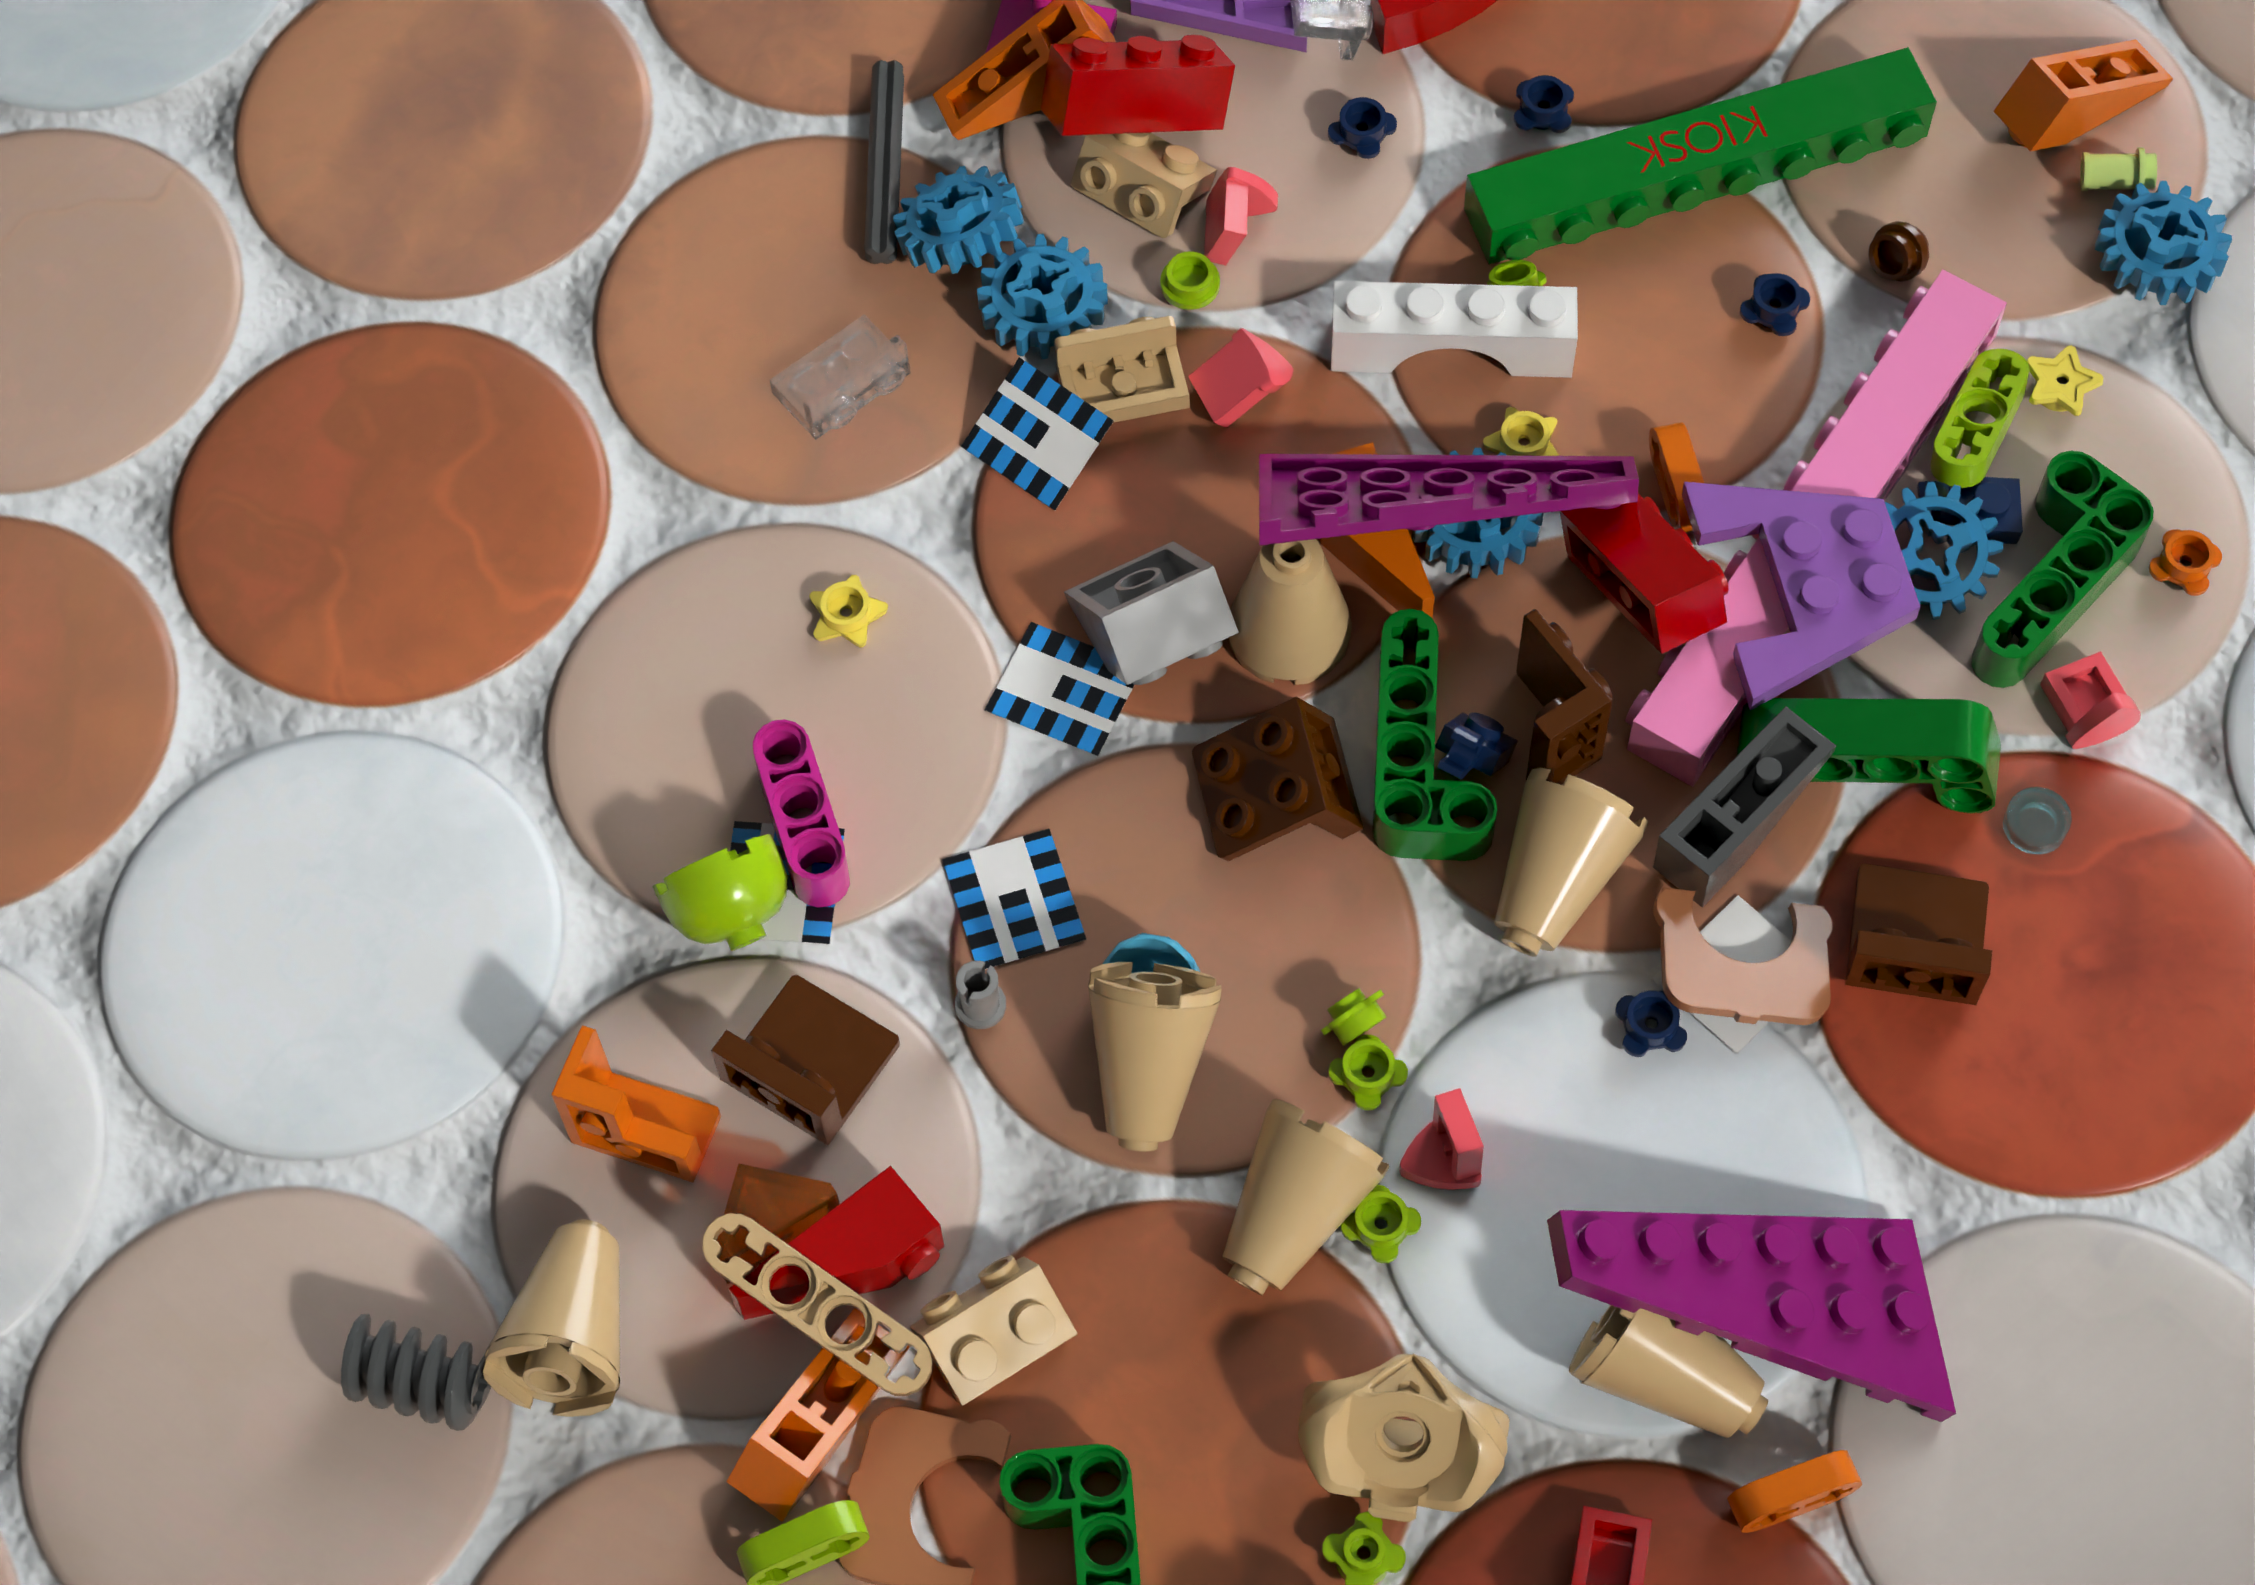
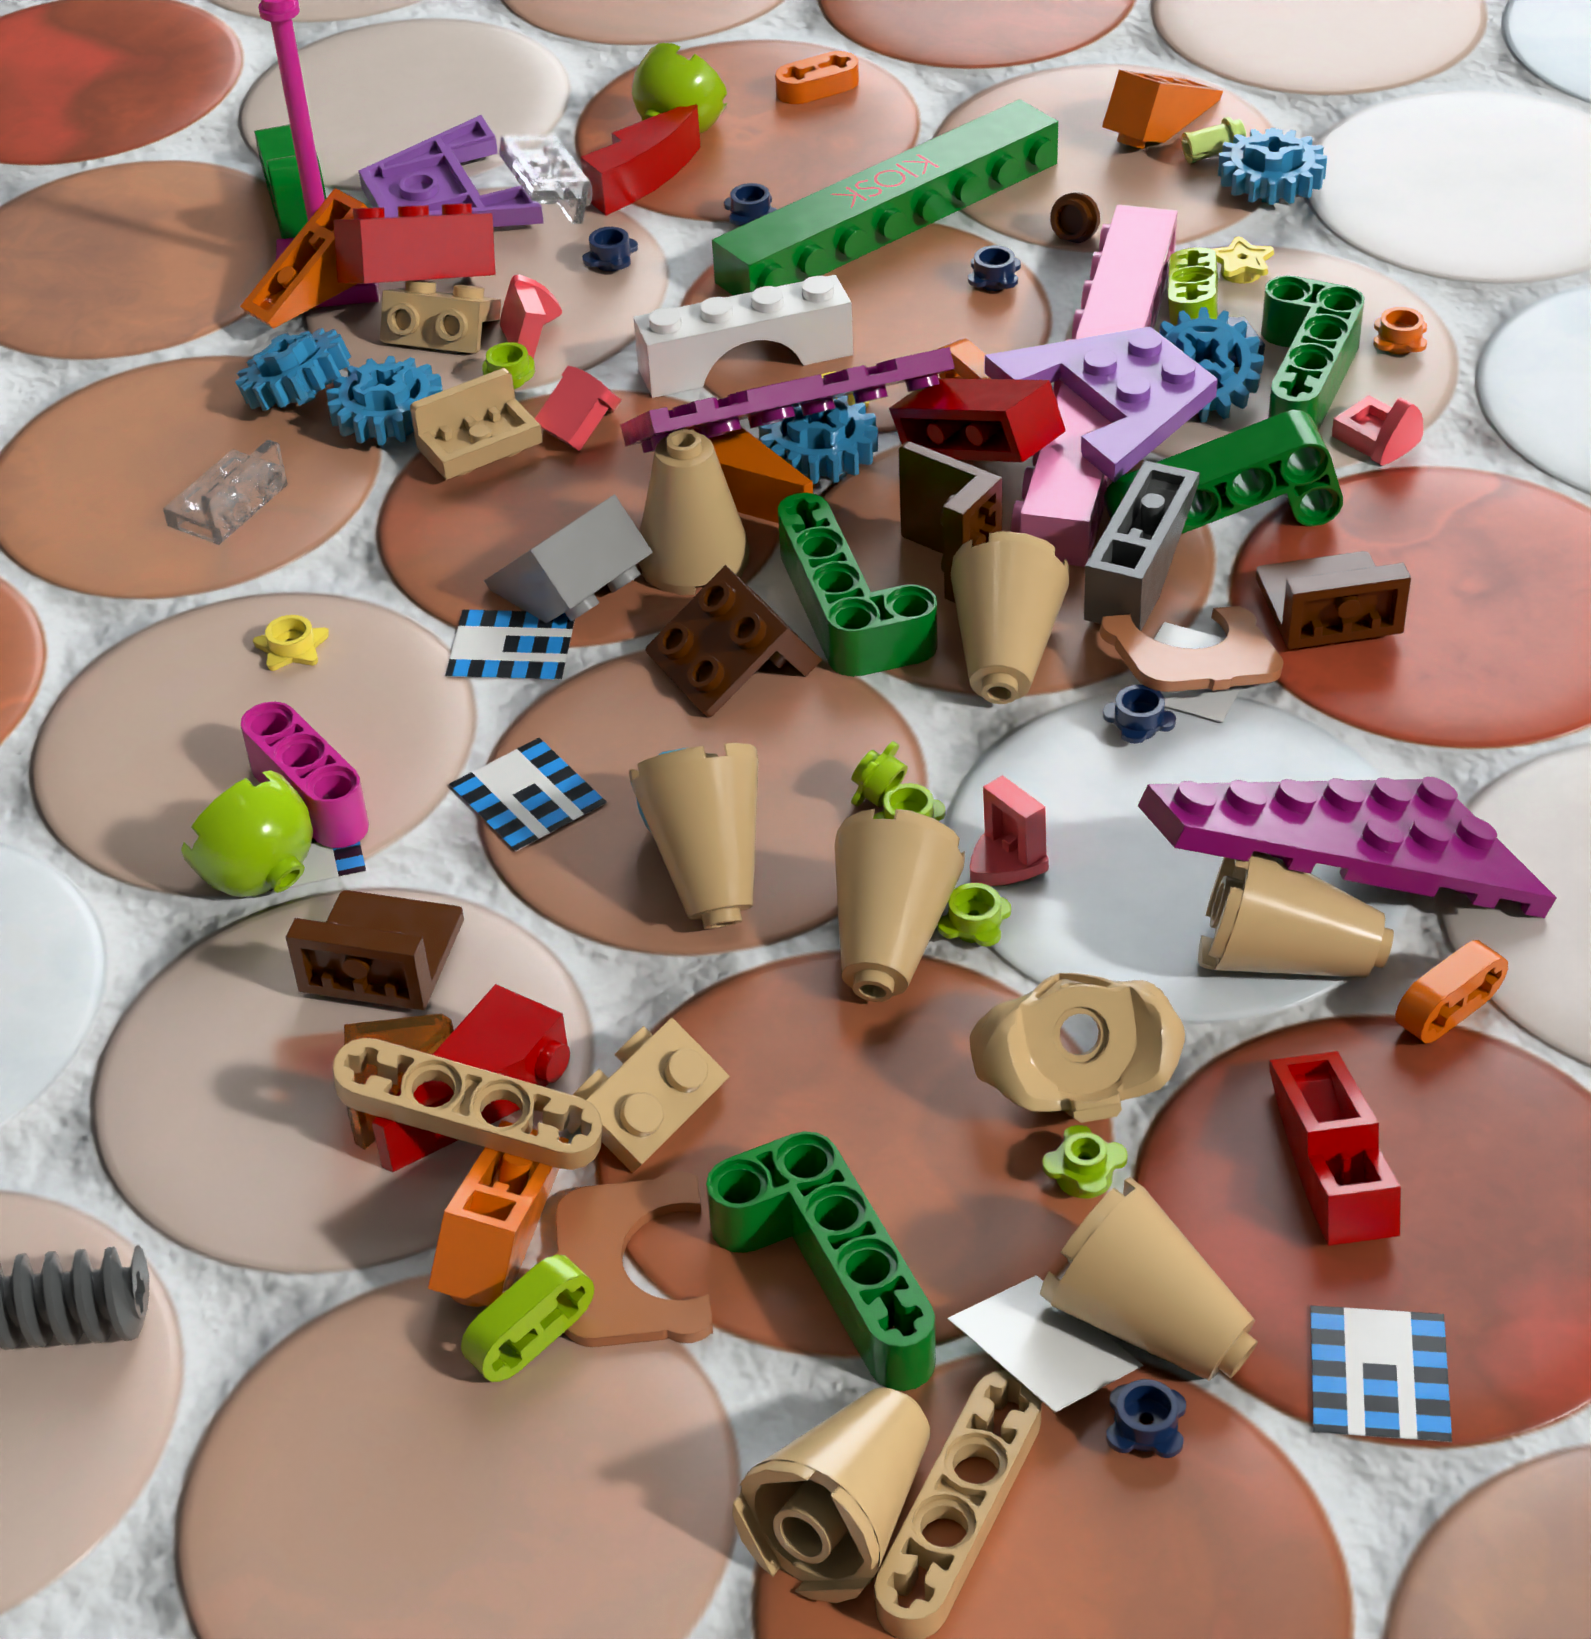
camera: 20 degrees left, 20 degrees down
(563, 1326) = (211, 1219): tan cone -> none
(631, 1116) = (203, 1045): orange panel -> none
(884, 161) = (213, 361): dark grey axle -> none
(979, 998) = (527, 861): light grey pin -> none
(1037, 433) = (417, 483): sticker -> none
(1474, 743) = (892, 566): dark blue plate -> none
(2037, 820) = (1381, 509): clear light blue tile -> none

